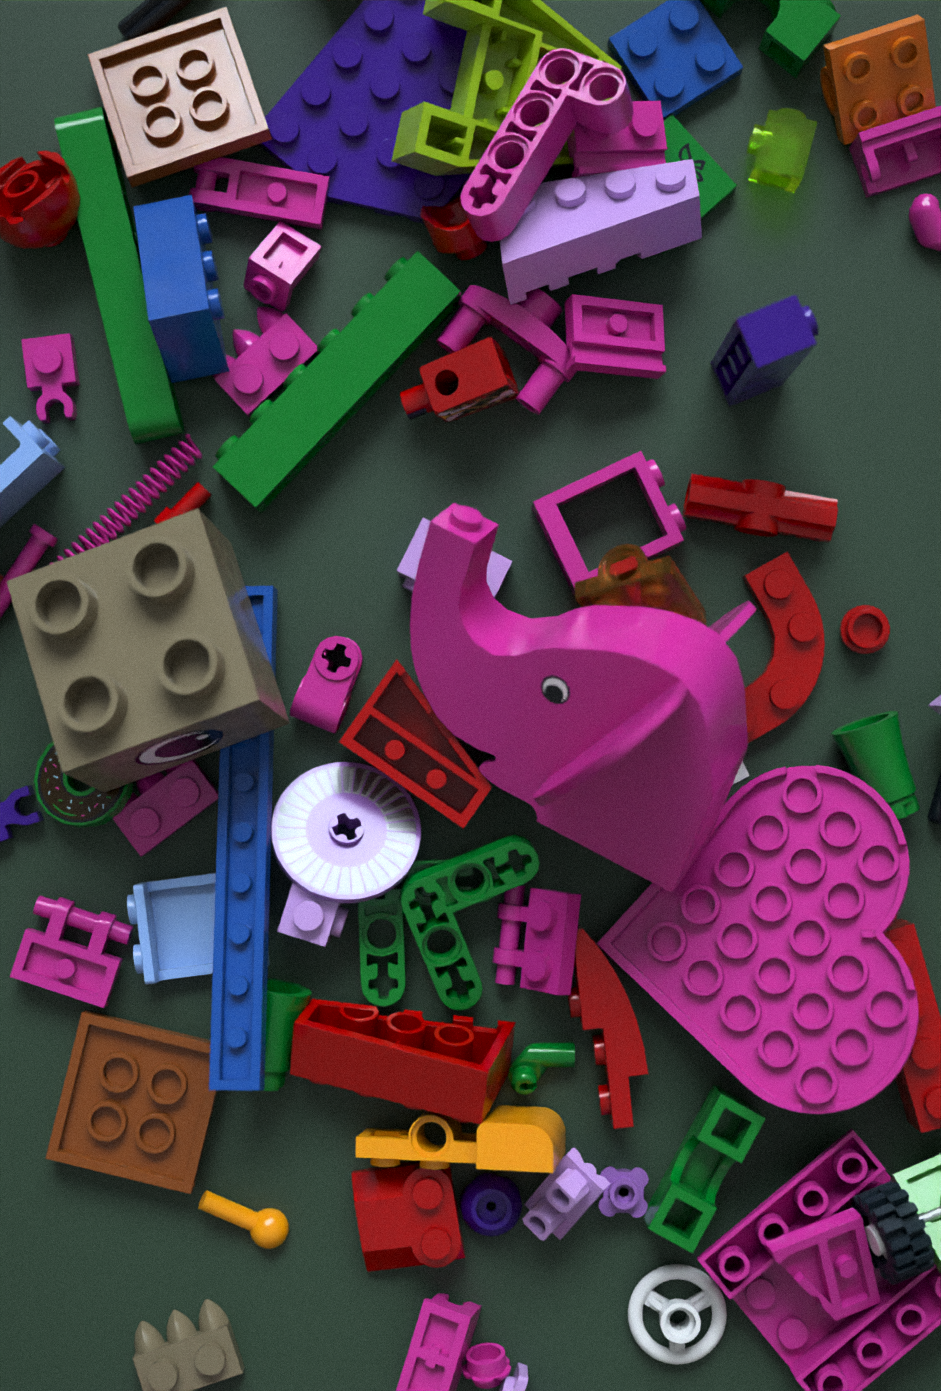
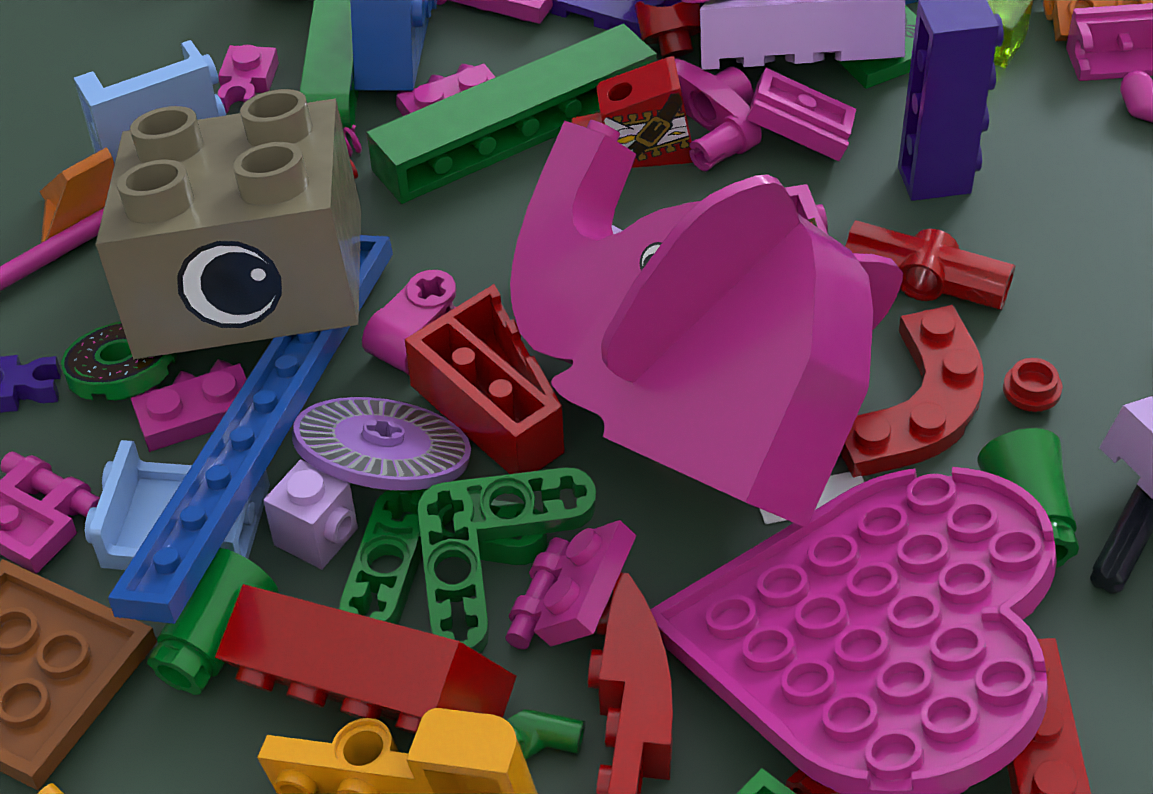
camera: 15 degrees right, 40 degrees down
(279, 265) = (488, 29): dark pink bracket -> none

